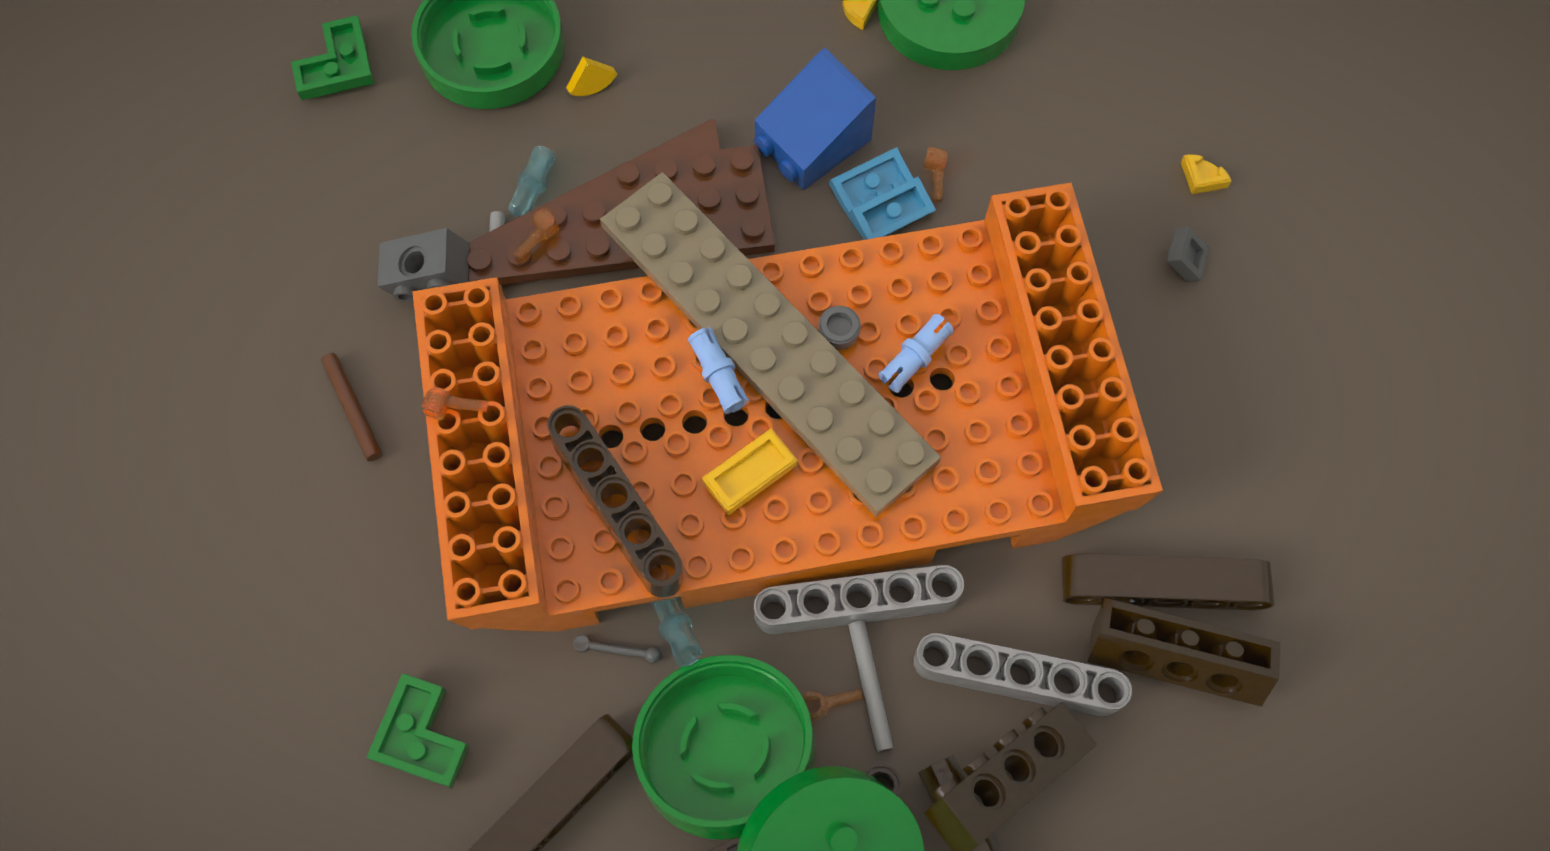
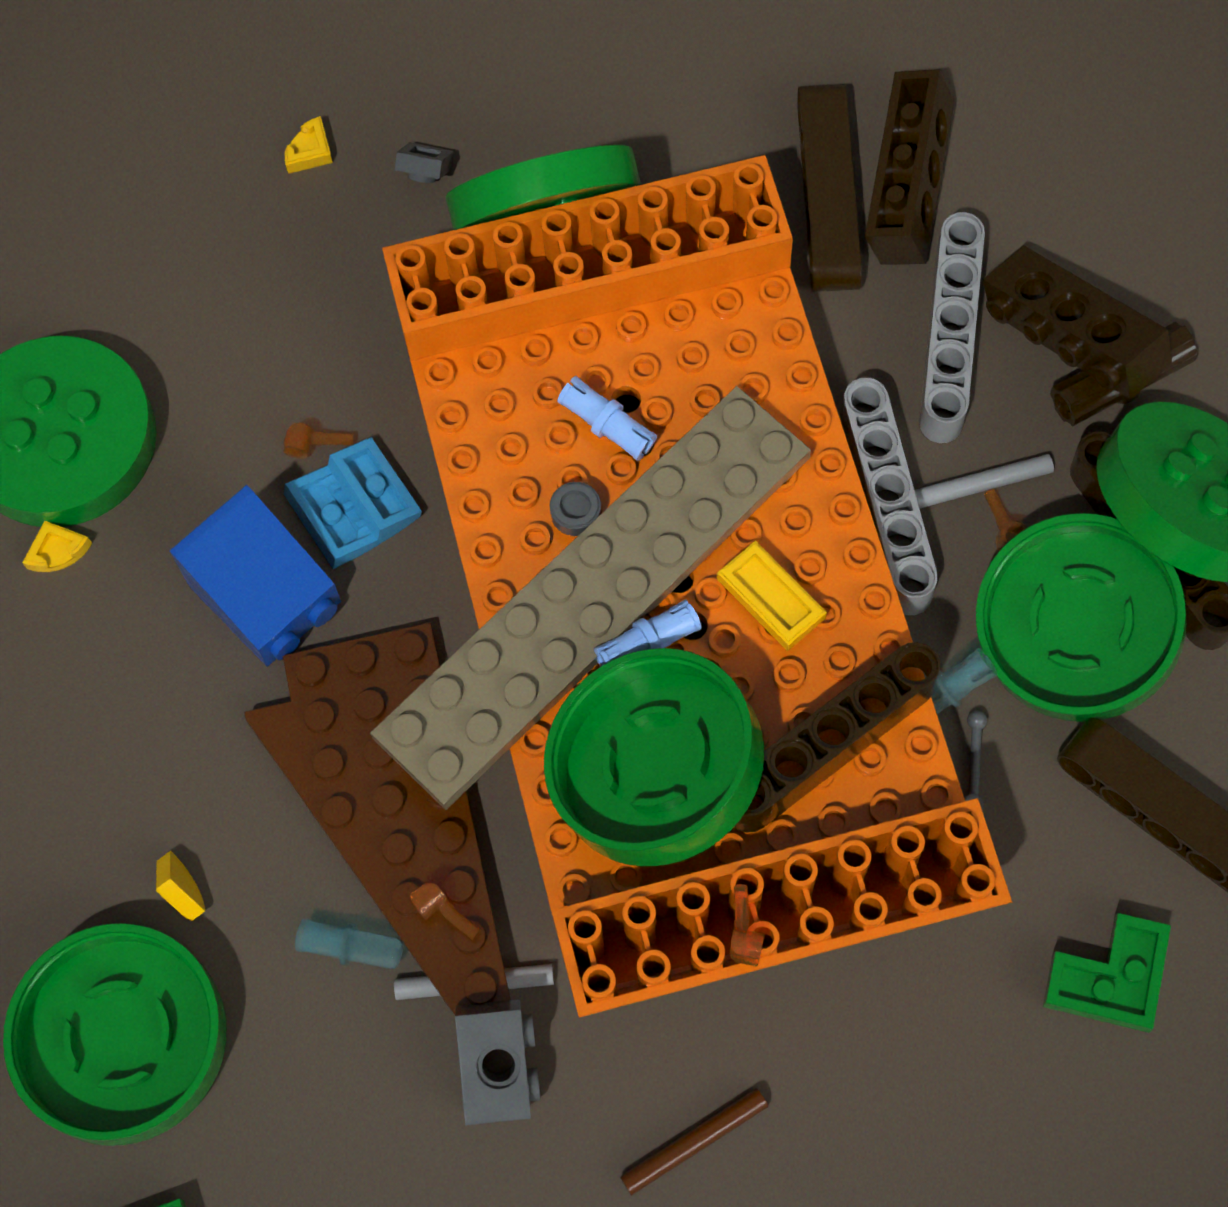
camera: 90 degrees left, 0 degrees up
(607, 357) = (654, 757): none -> green piece
(1135, 321) = (542, 184): none -> green piece

